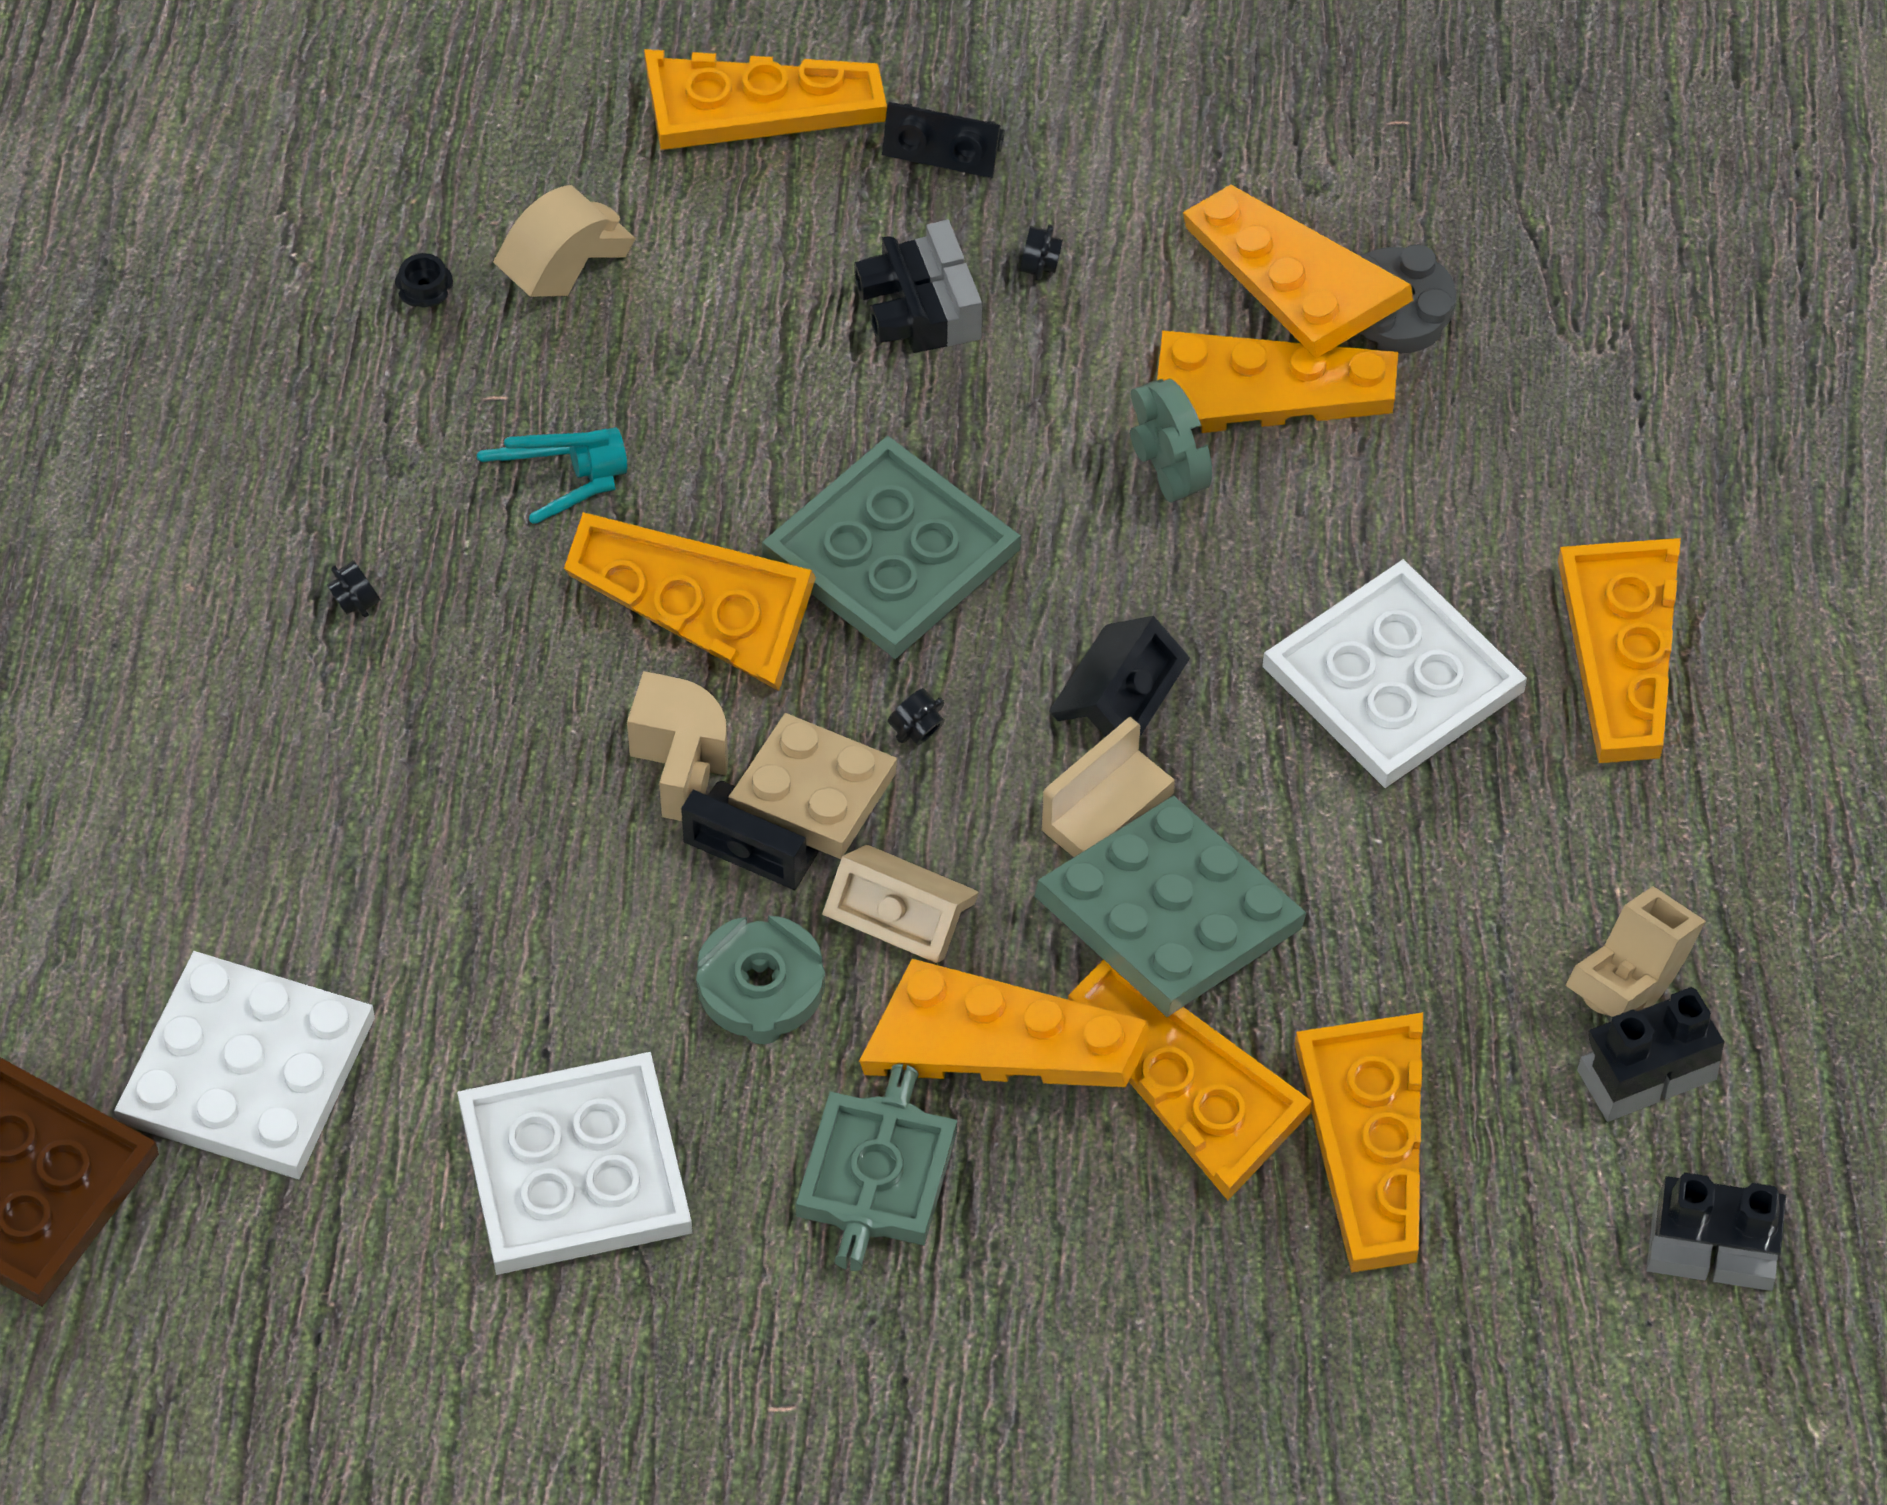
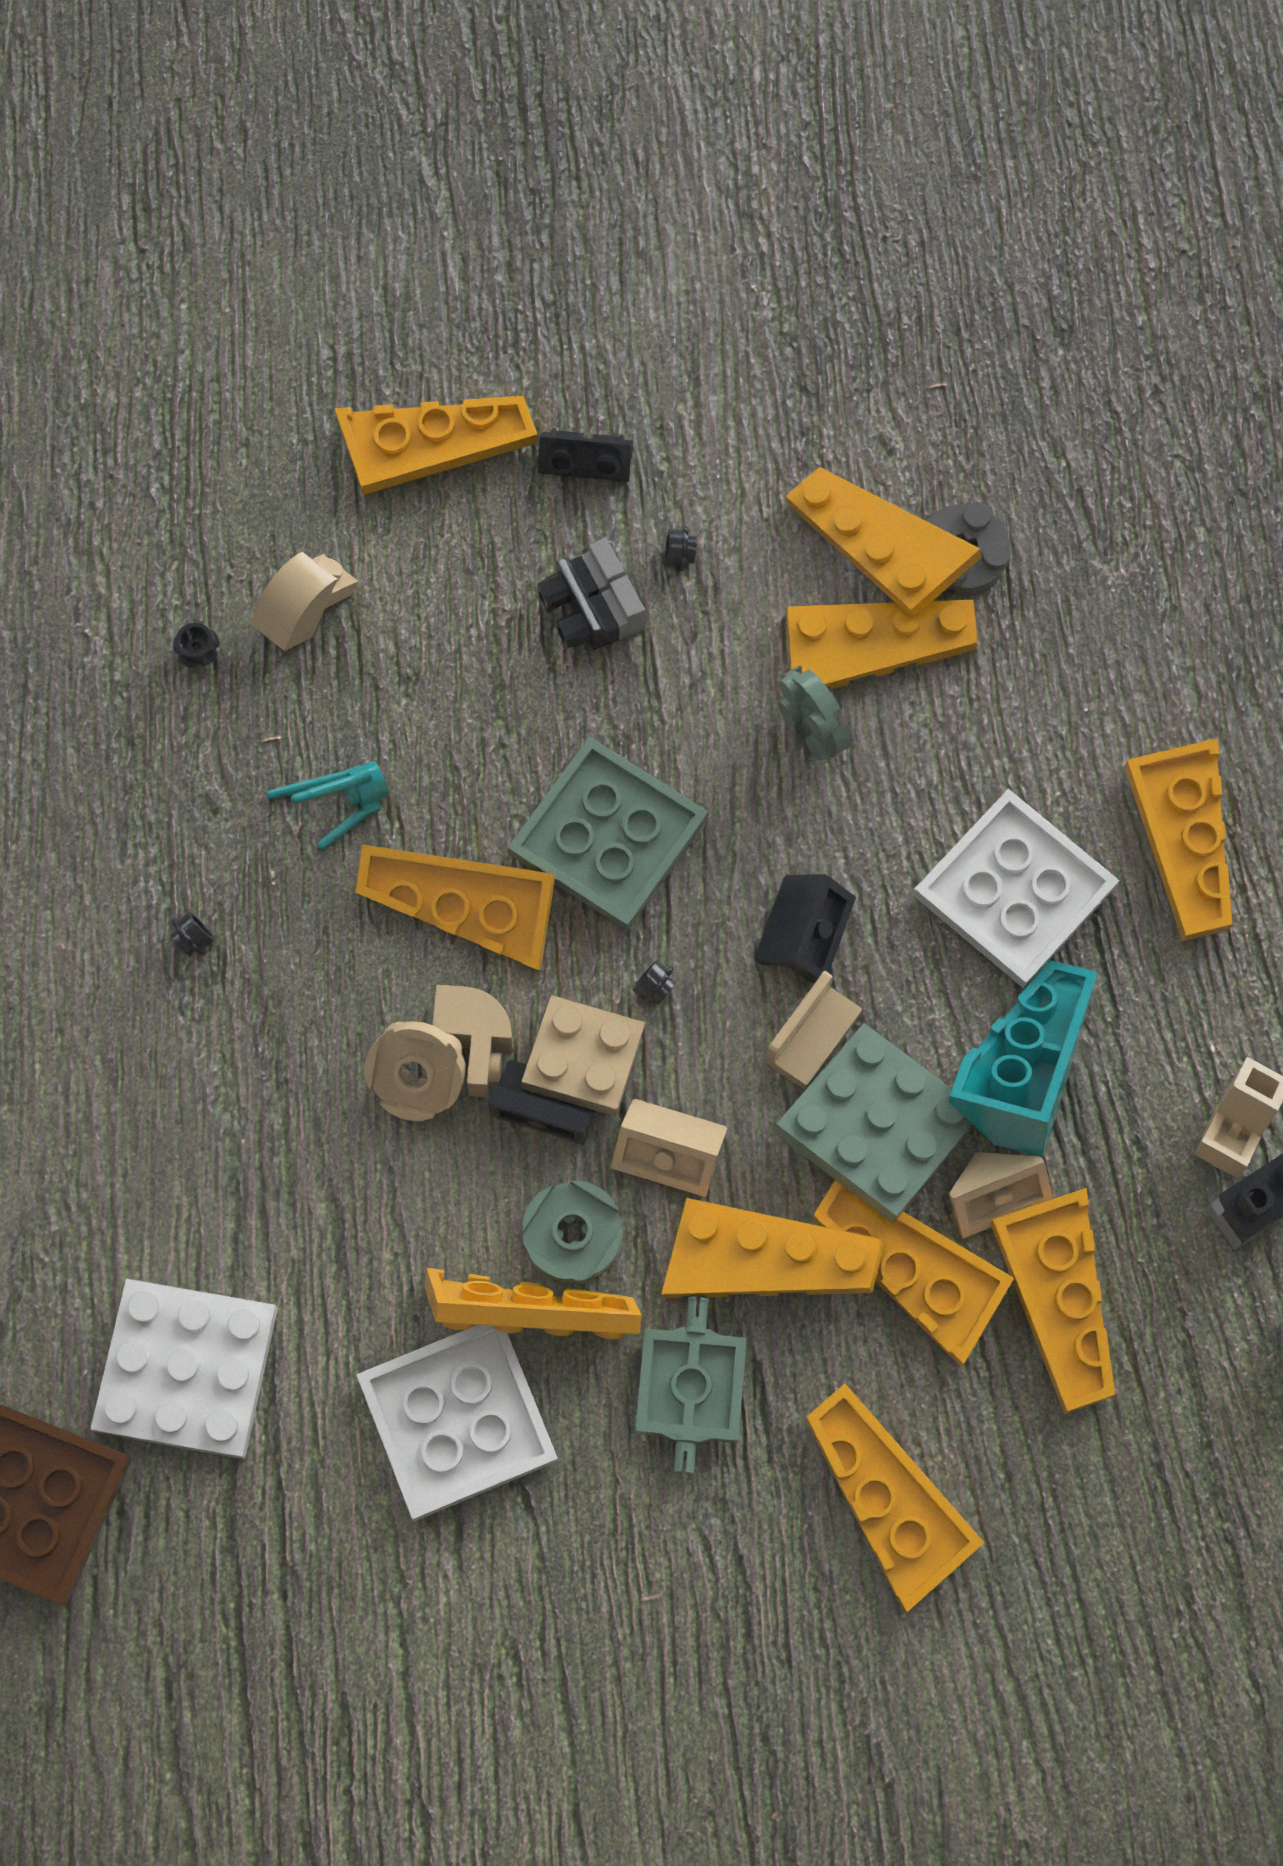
camera: 10 degrees left, 15 degrees up
(567, 780) = (419, 1043): none -> tan plate
(665, 1041) = (529, 1306): none -> light orange wing
(1114, 1341) = (896, 1505): none -> light orange wing
(1307, 1000) = (996, 1187): none -> tan slope
(1369, 869) = (1020, 1070): none -> teal wedge

